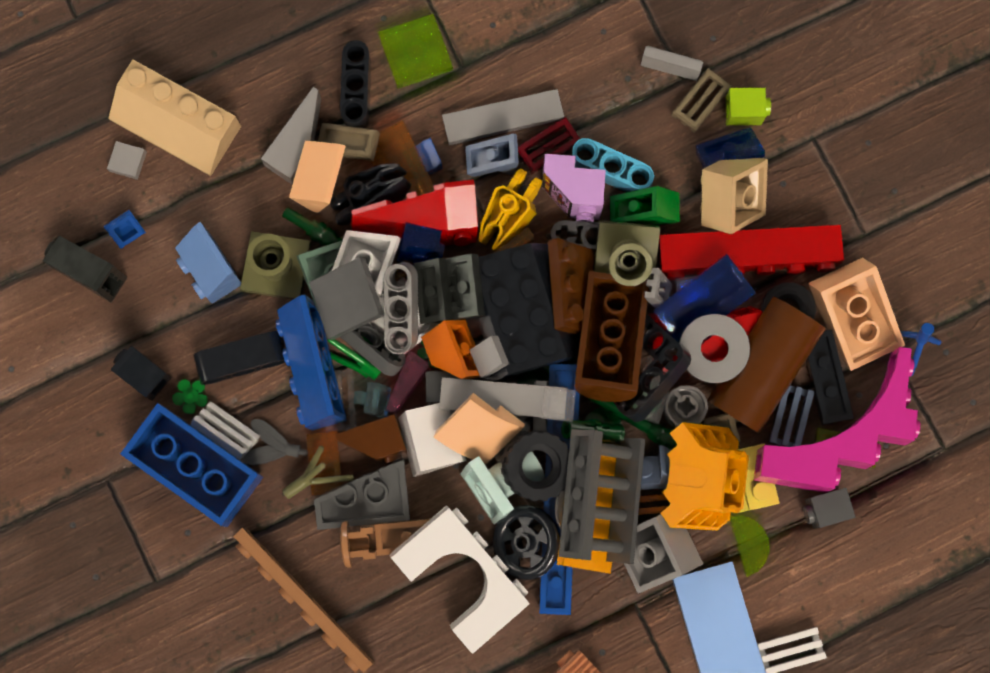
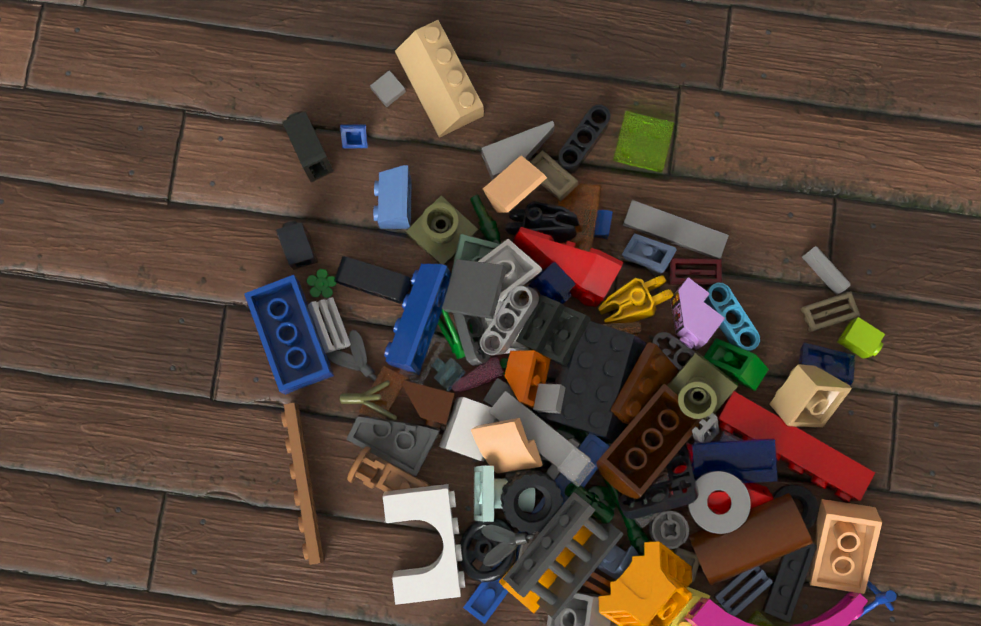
camera: 35 degrees right, 0 degrees up
(541, 521) = (508, 543): none -> dark grey piece

